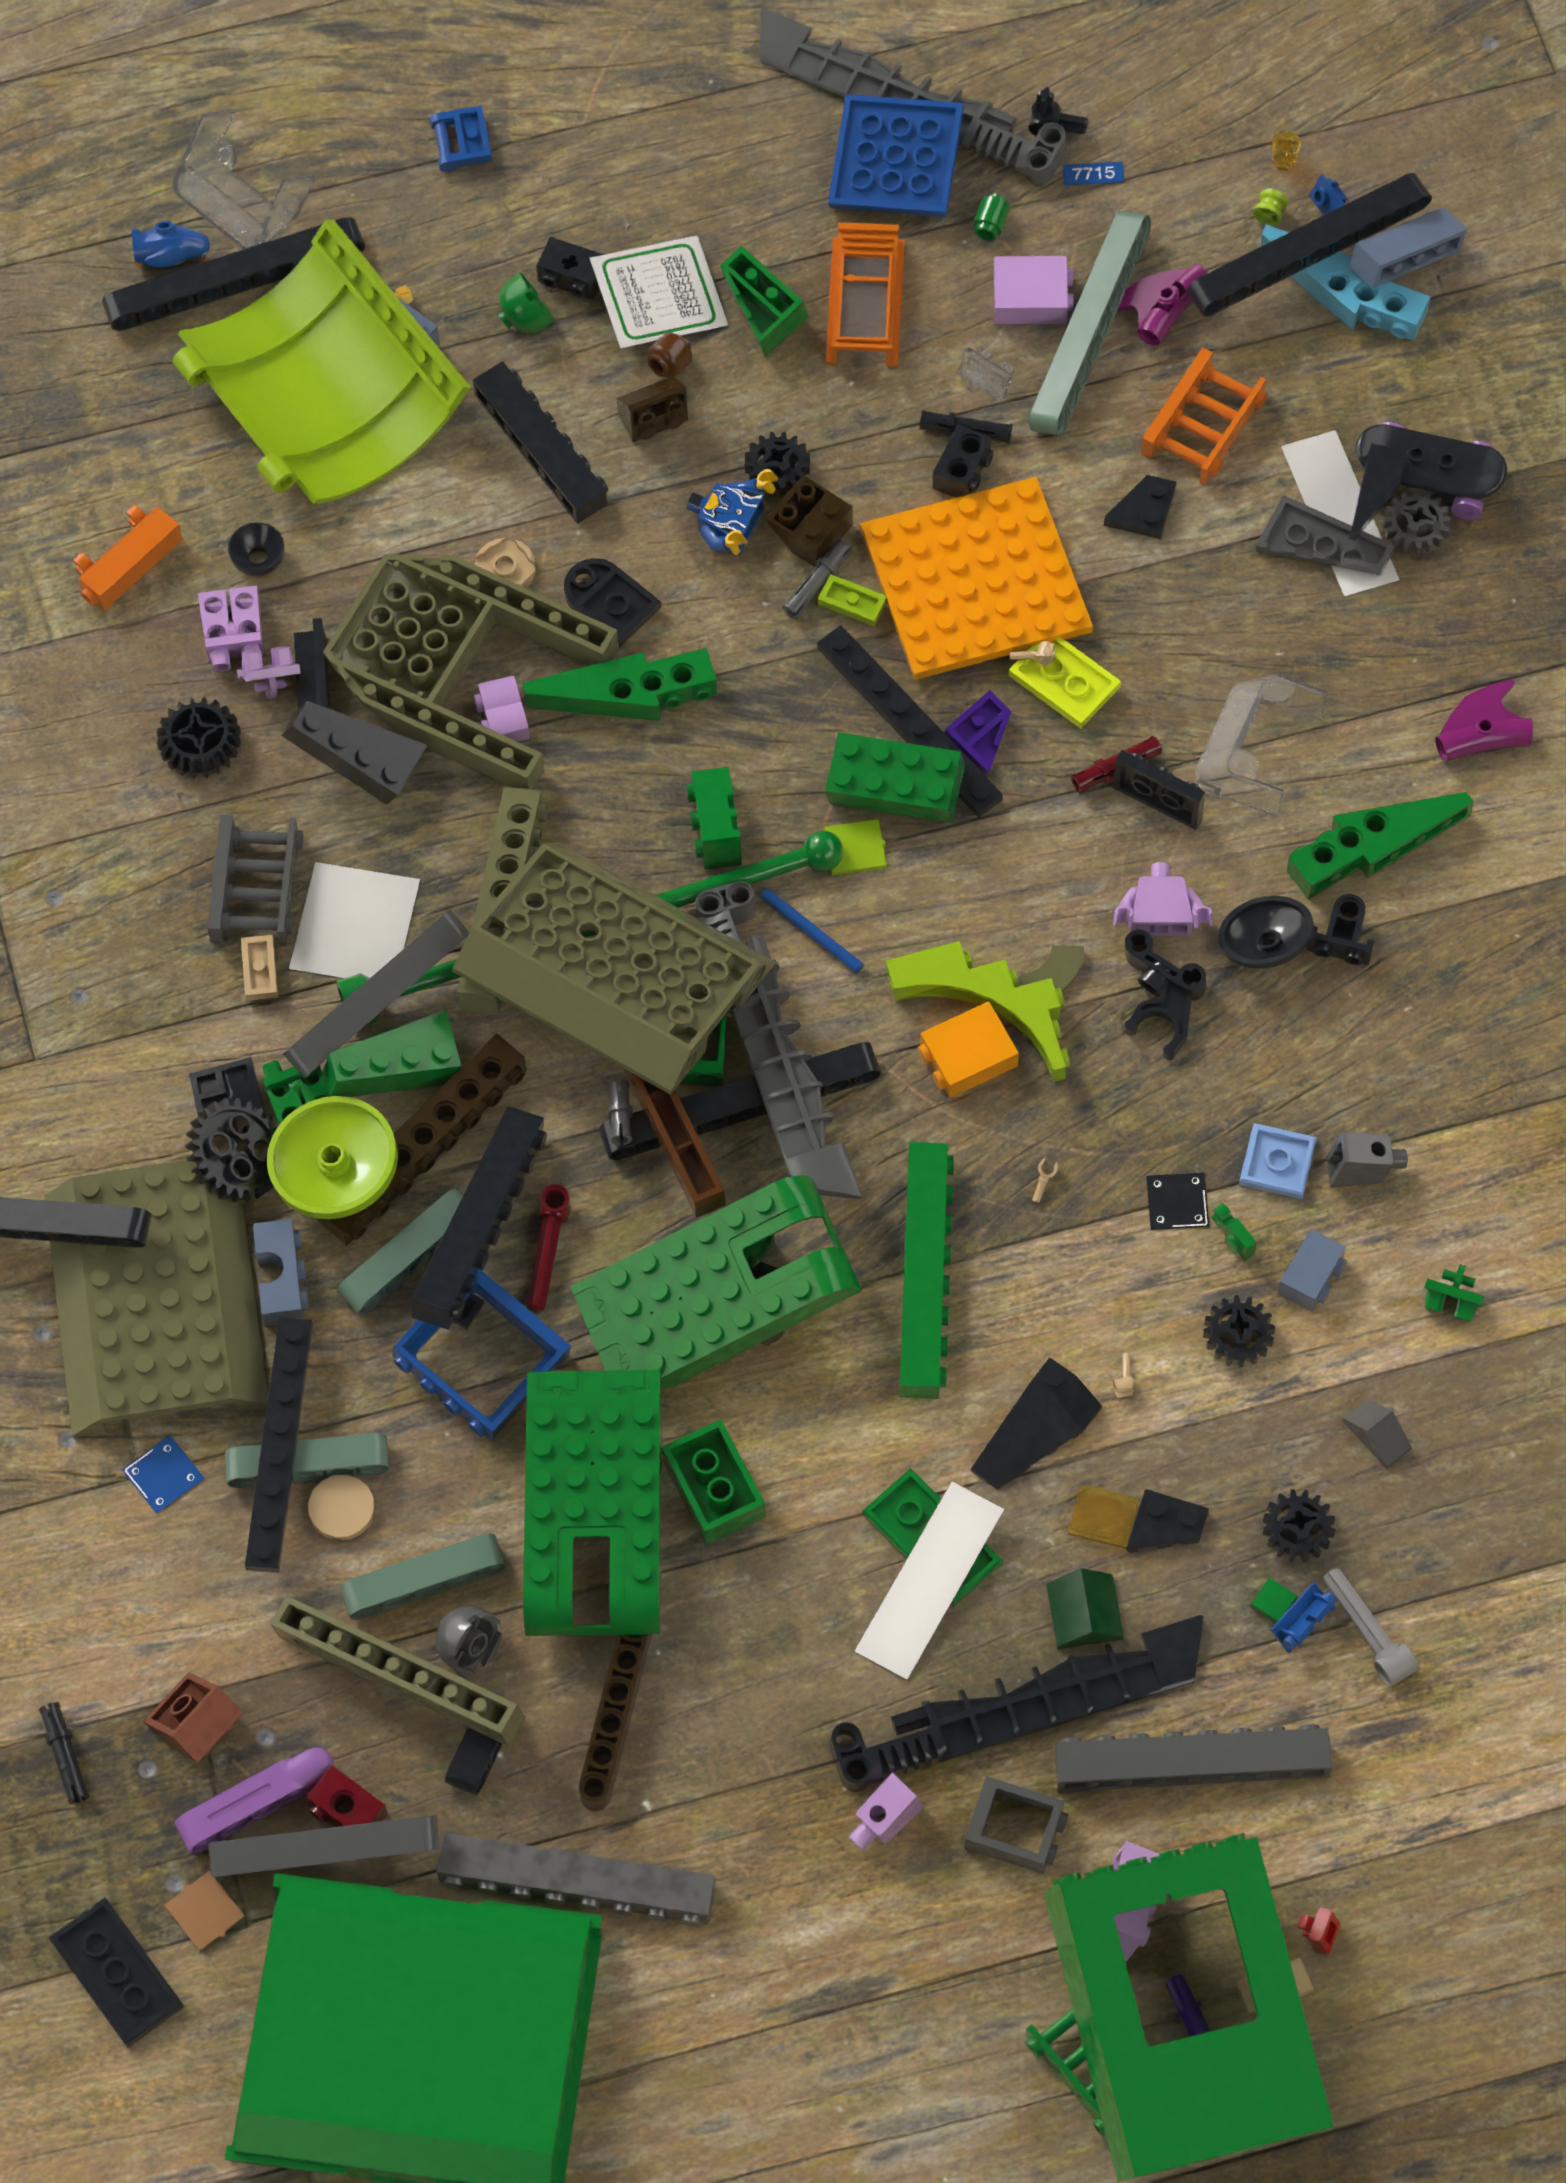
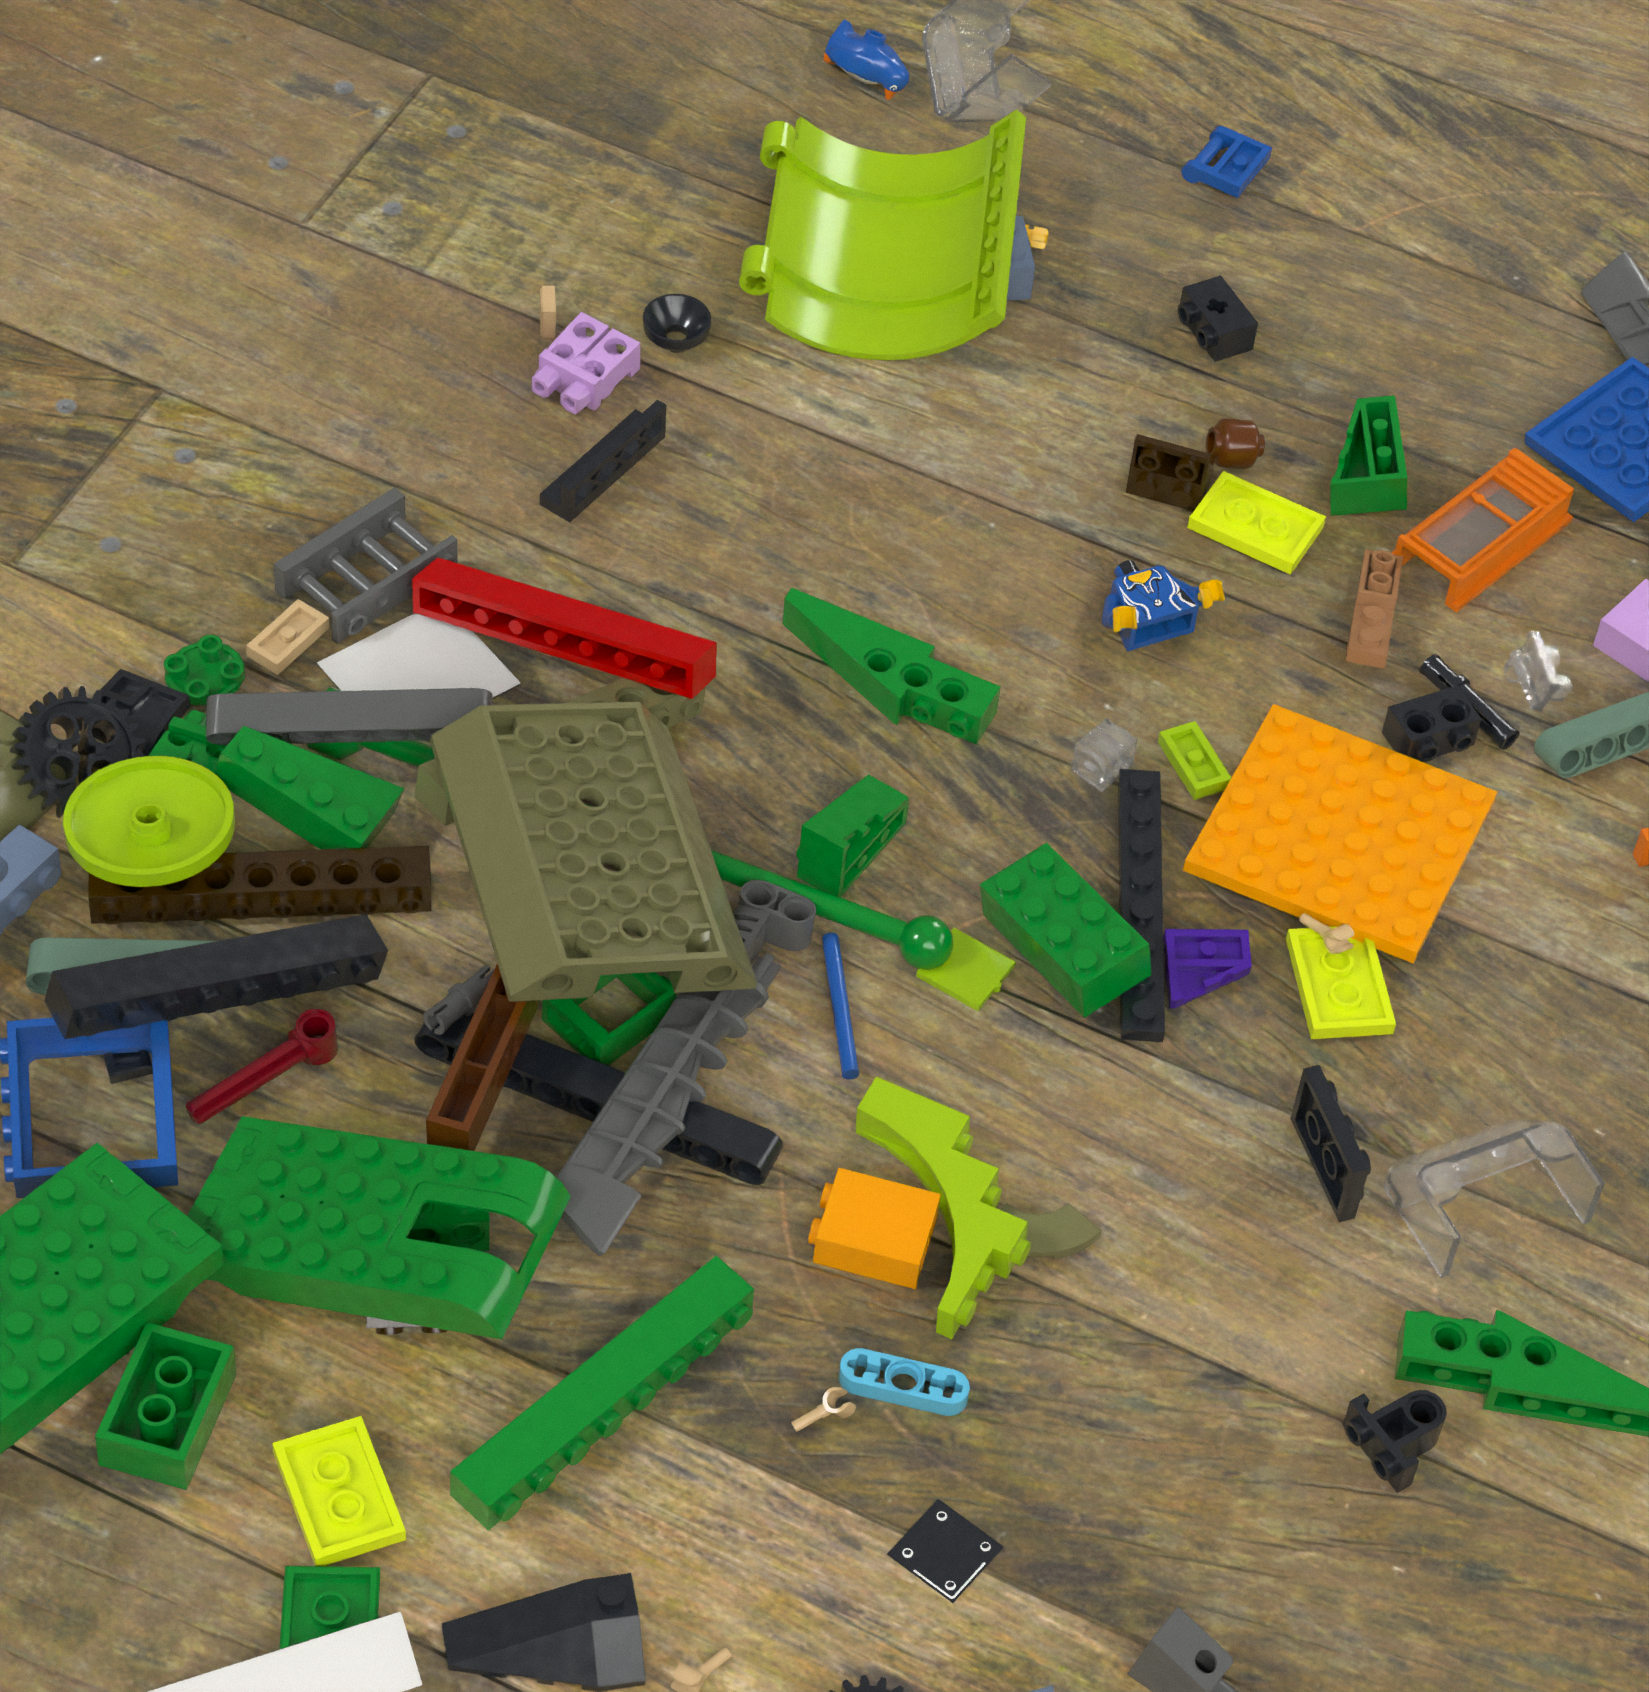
camera: 35 degrees right, 15 degrees down
(129, 558) = (558, 252): orange brick -> none
(169, 608) = (547, 312): none -> tan tile
(214, 278) = (885, 112): black beam -> none
(221, 734) = (453, 424): black gear -> none
(236, 1032) = (204, 669): none -> green dish
(281, 665) = (561, 403): lavender hips -> none
(355, 749) = (576, 529): black wedge -> none
(418, 634) = (746, 485): olive wedge -> none
(424, 825) = (565, 627): none -> red brick
(502, 708) = (750, 603): lavender brick -> none
(509, 560) = (890, 500): tan tile -> none
(522, 306) = (1136, 312): green cylinder -> none
(541, 442) = (1034, 427): black brick -> none
(610, 597) = (959, 594): black plate -> none
(658, 291) = (1281, 386): white sticker -> none
(733, 401) = (1256, 522): none -> neon yellow plate
(780, 457) = (1250, 599): black gear -> none
(801, 640) = (1103, 754): none -> clear brick
(810, 520) = (1224, 664): dark brown slope -> none
(817, 578) = (1162, 719): dark grey pin -> none
(846, 1447) = (339, 1491): none -> neon yellow plate
(856, 408) = (1374, 608): none -> medium nougat slope
(1042, 1128) = (914, 1398): none -> medium azure beam
(1104, 769) = (1286, 1087): dark red pin -> none
(1144, 508) = (1585, 900): black wing -> none
(1162, 905) = (1218, 1252): lavender torso -> none
(1169, 984) = (1154, 1341): black piece -> none
(1236, 1235) = (965, 1635): green plate -> none
(1266, 932) = (1307, 1362): black dish -> none
(1277, 1161) = (1094, 1599): light blue tile -> none

